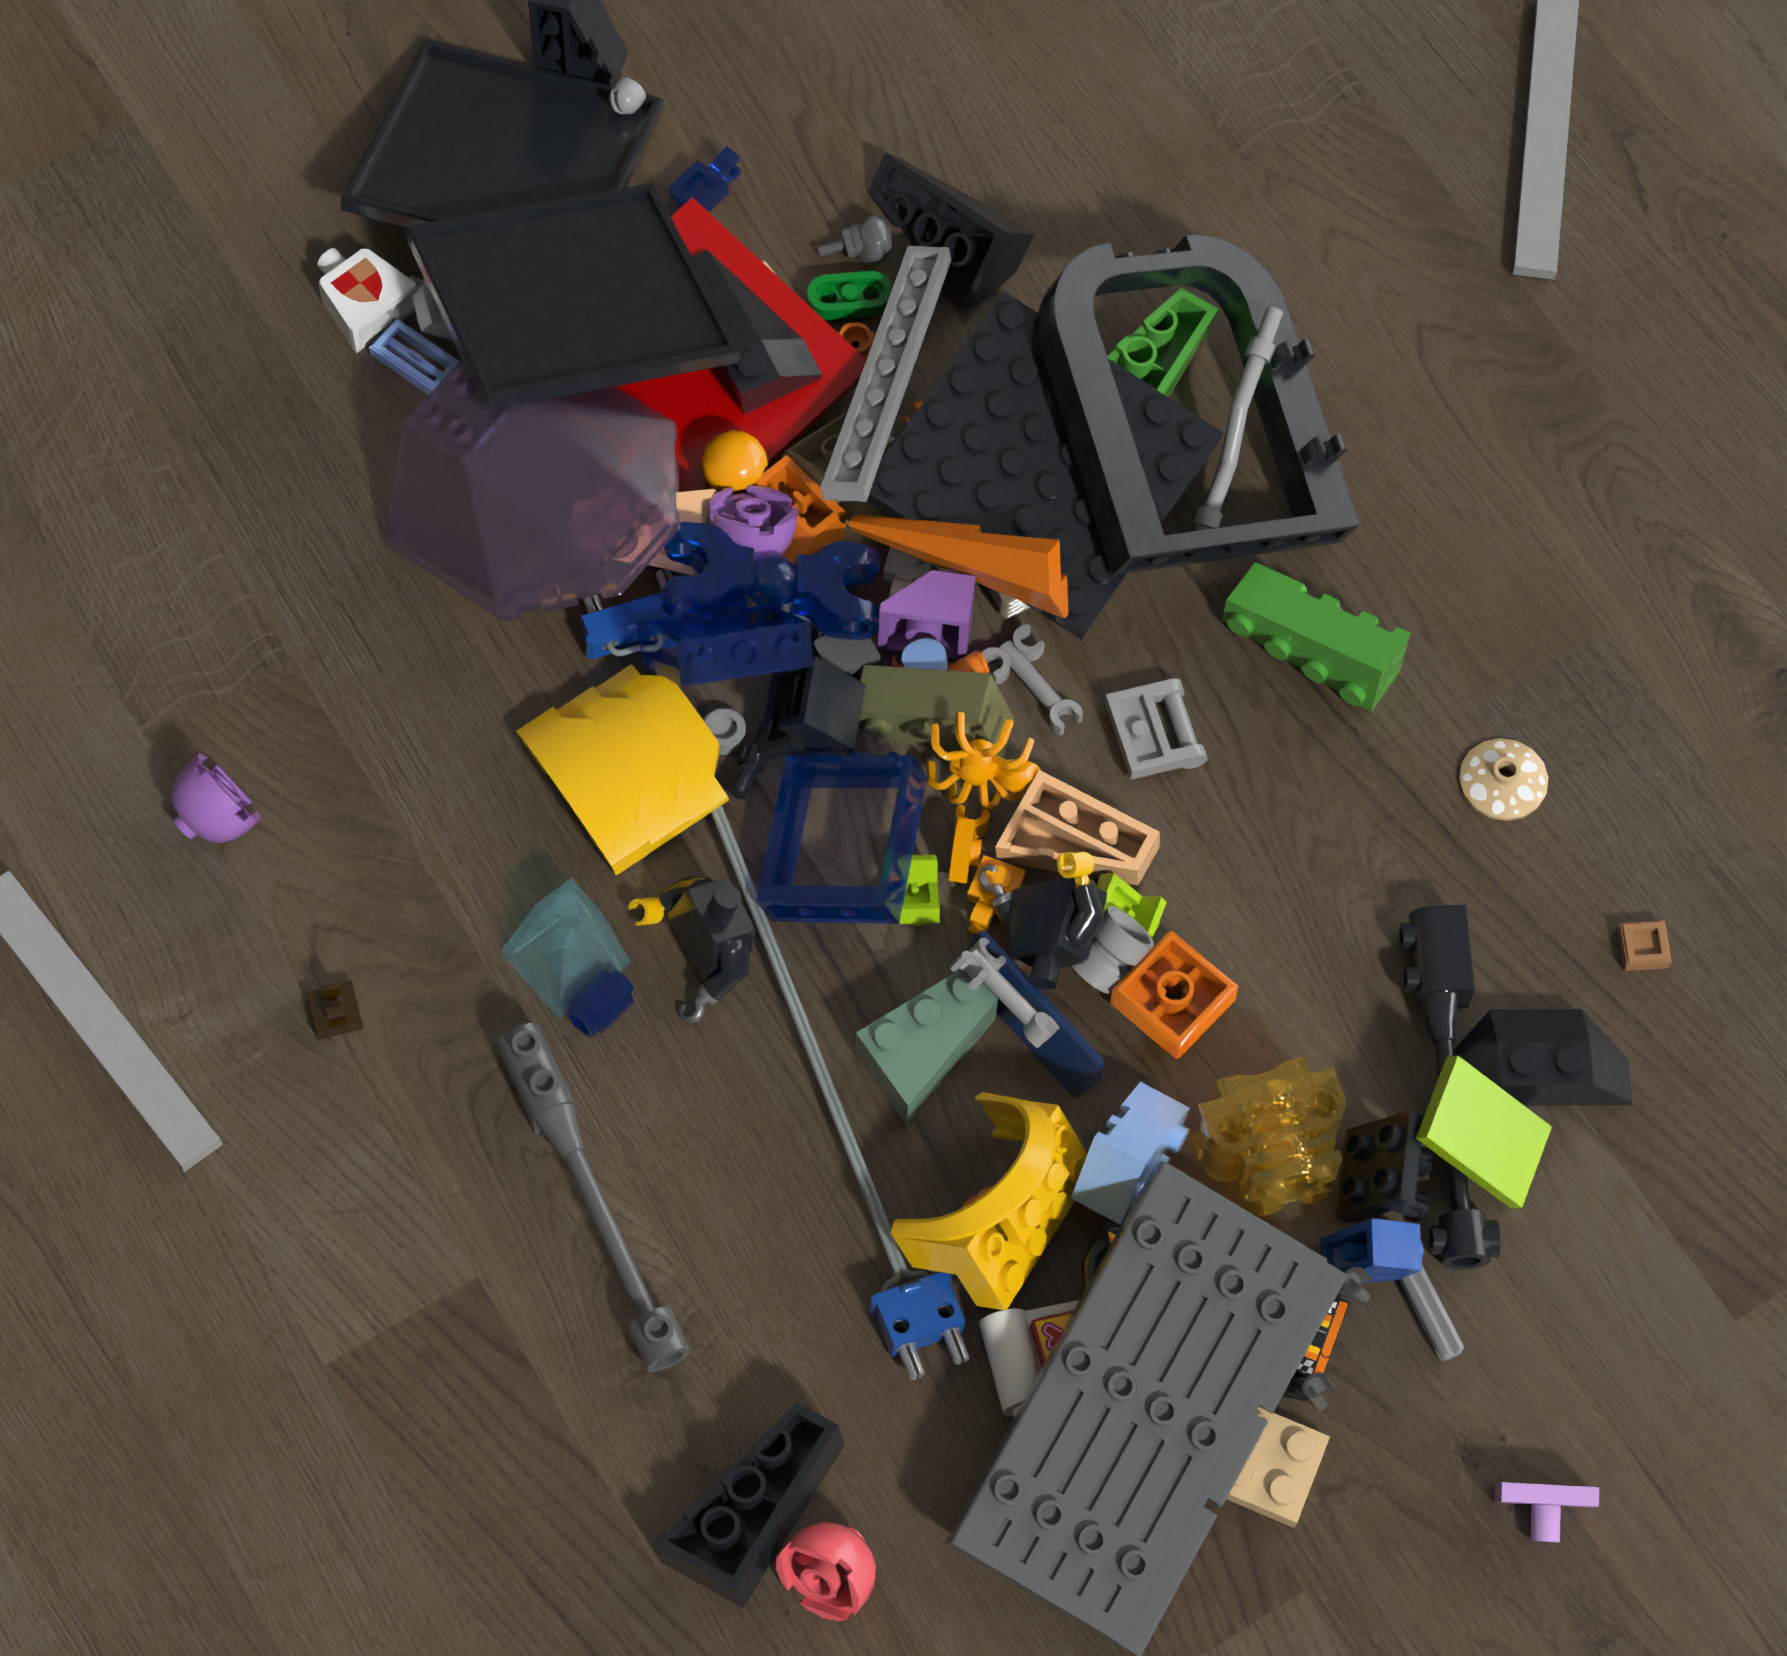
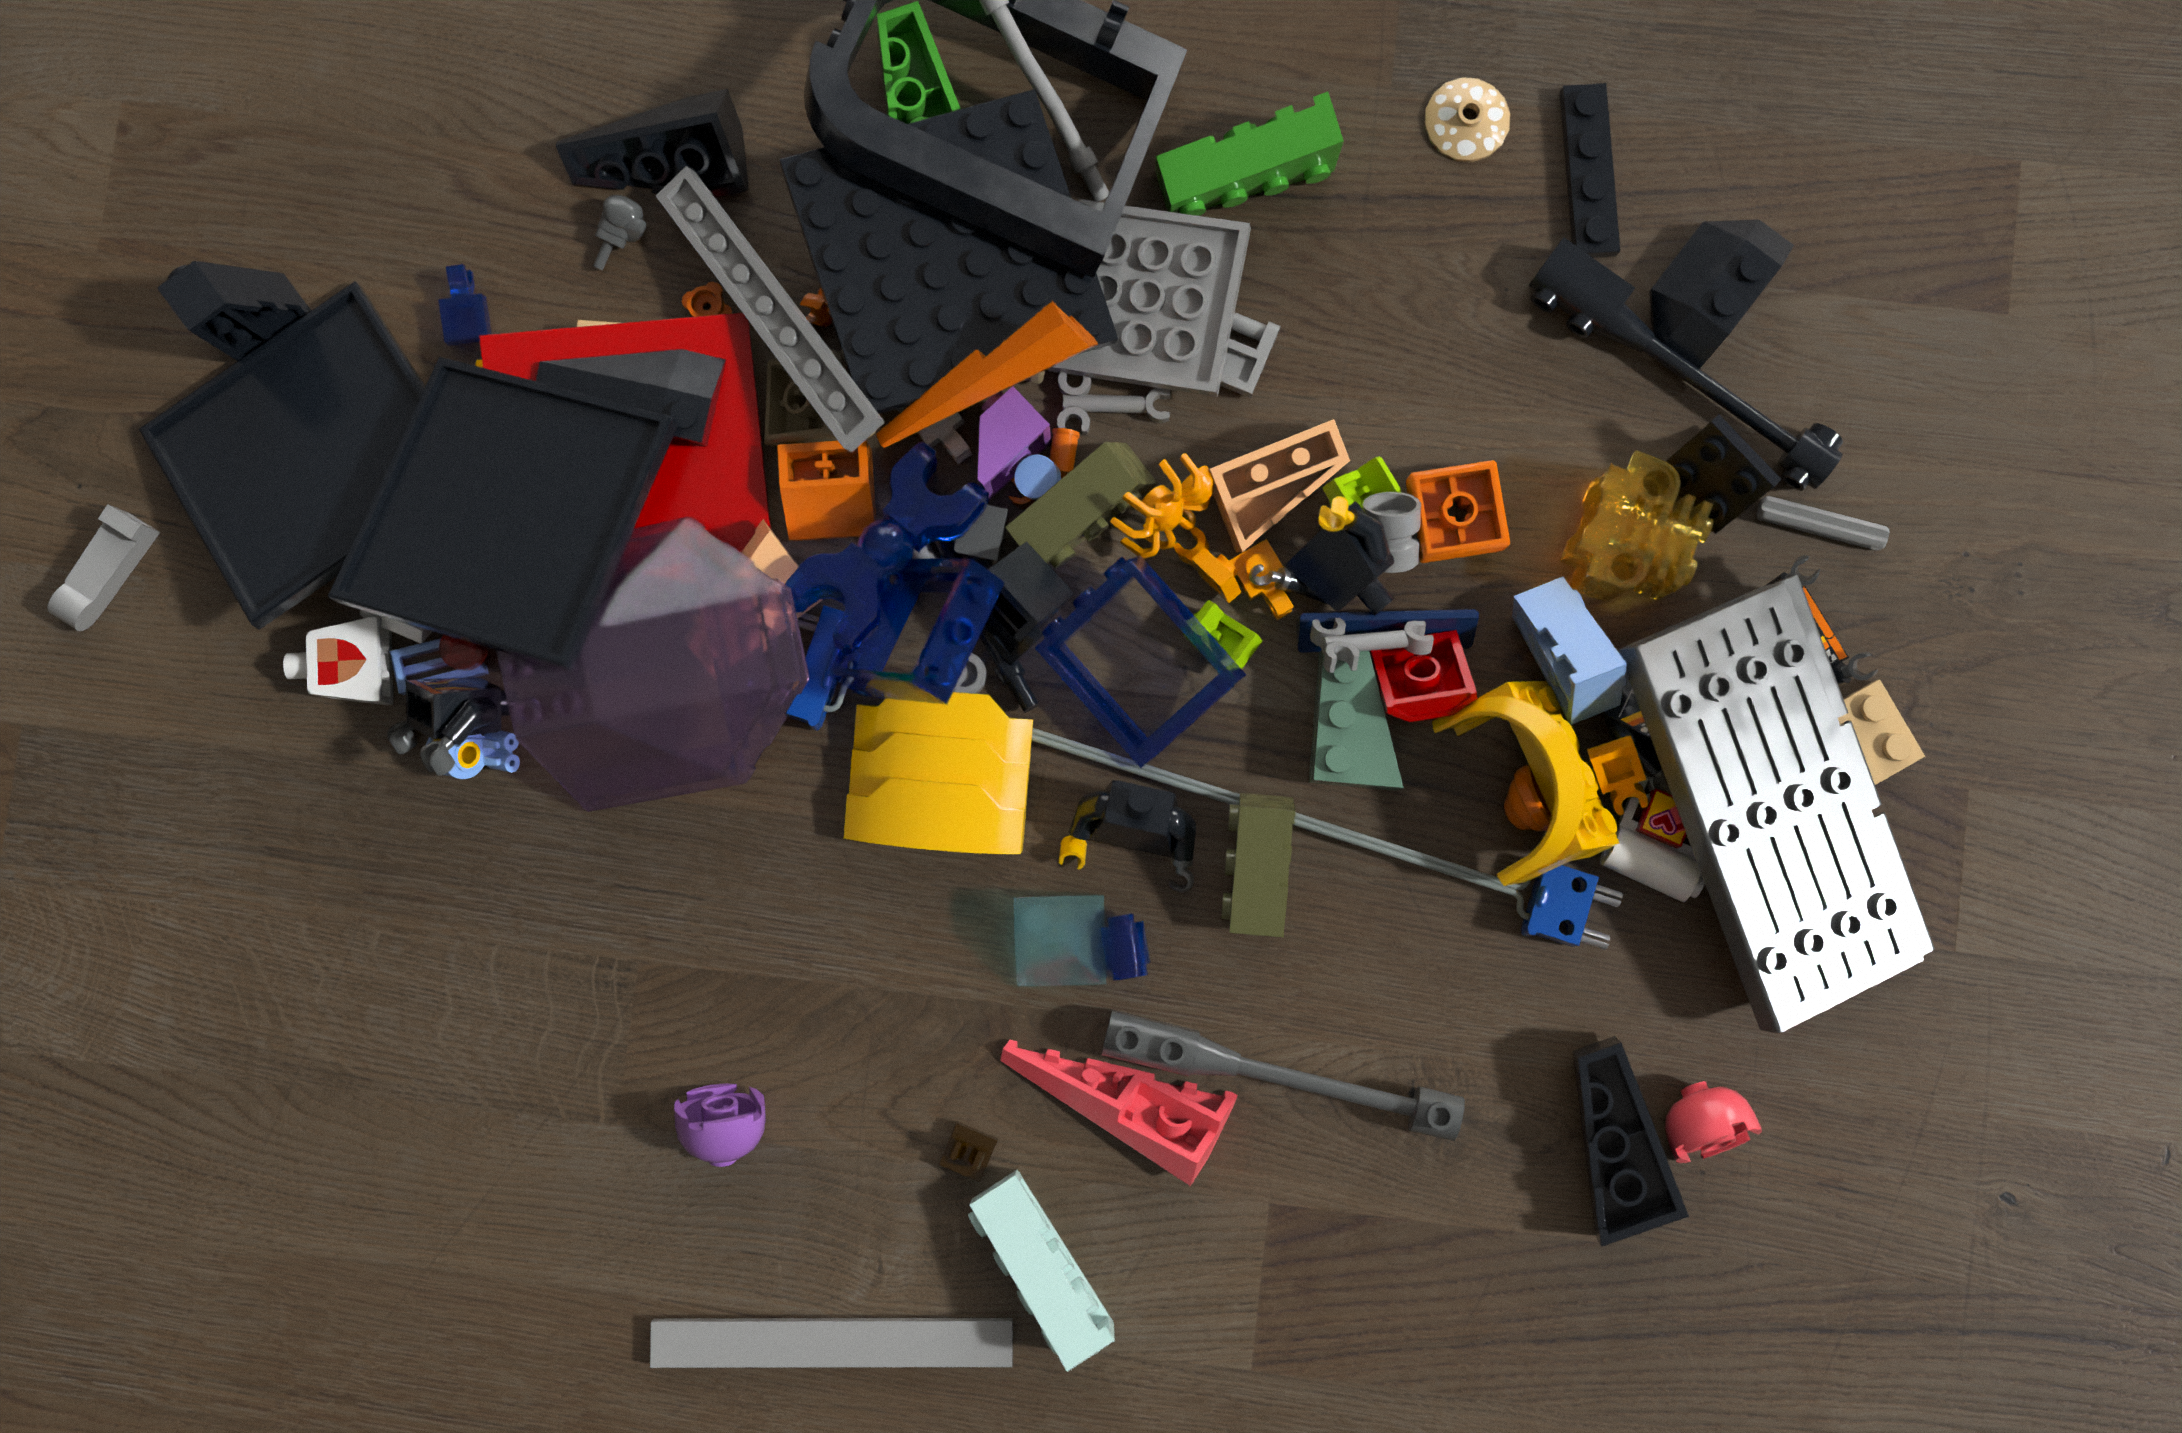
camera: 45 degrees left, 20 degrees up
(282, 1126) = (1043, 1270): none -> light aqua wedge
(298, 88) = (102, 568): none -> light grey leg
(362, 420) = (478, 750): none -> light blue piece
(378, 375) = (448, 712): none -> black torso
(438, 360) = (461, 654): none -> clear red tile
(477, 1136) = (1156, 1118): none -> coral wedge
(626, 96) = (331, 310): light grey hinge -> none
(733, 461) = (750, 491): light orange hair -> none
(754, 1044) = (1259, 864): none -> olive wedge
(755, 519) = (819, 517): medium lavender cylinder -> none
(849, 294) = (655, 275): green plate -> none
(1007, 1061) = (1427, 684): none -> red slope
(1066, 1260) = (1619, 771): none -> light orange plate
(1148, 652) = (1170, 298): none -> light grey plate
(1378, 1246) = (1777, 537): blue slope -> none
(1484, 1132) = (1751, 377): lime tile -> none
(1546, 899) = (1590, 169): none -> black plate
(1546, 1504) = (2046, 565): lavender tile -> none
(1644, 945) = (1681, 131): medium nougat tile -> none

